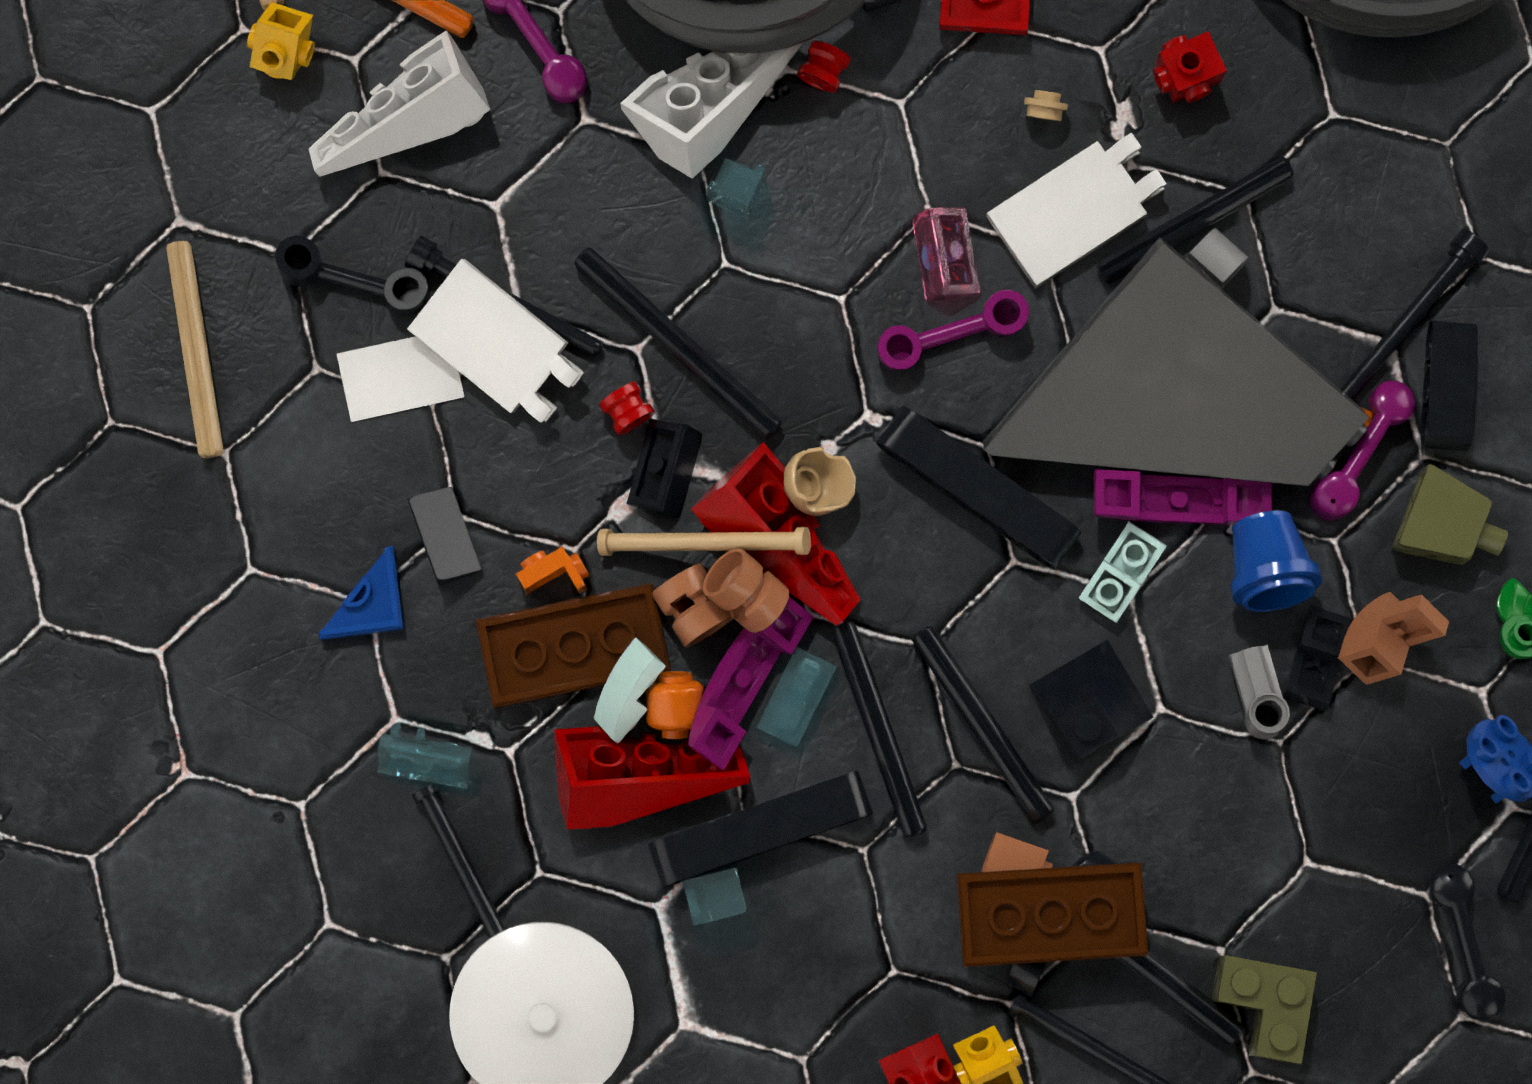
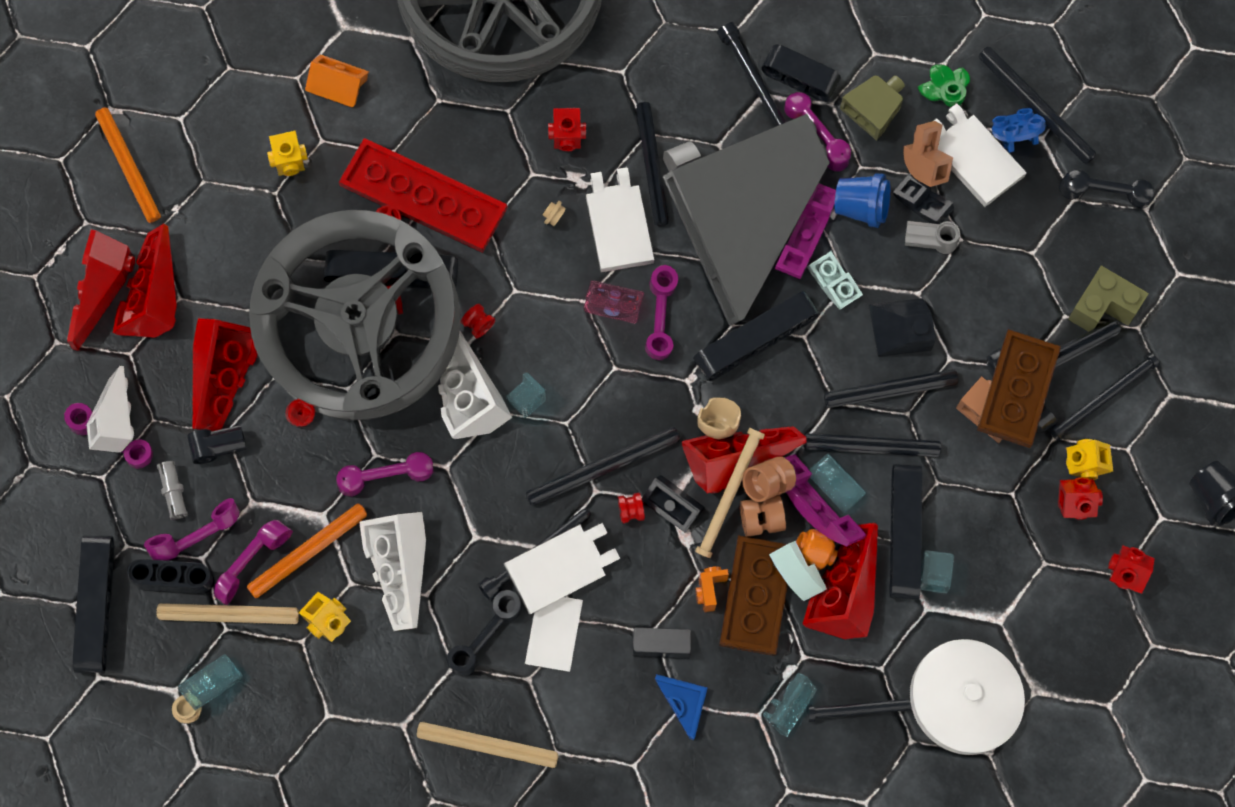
camera: 70 degrees left, 10 degrees down
(1429, 714) = (978, 157): none -> white tile

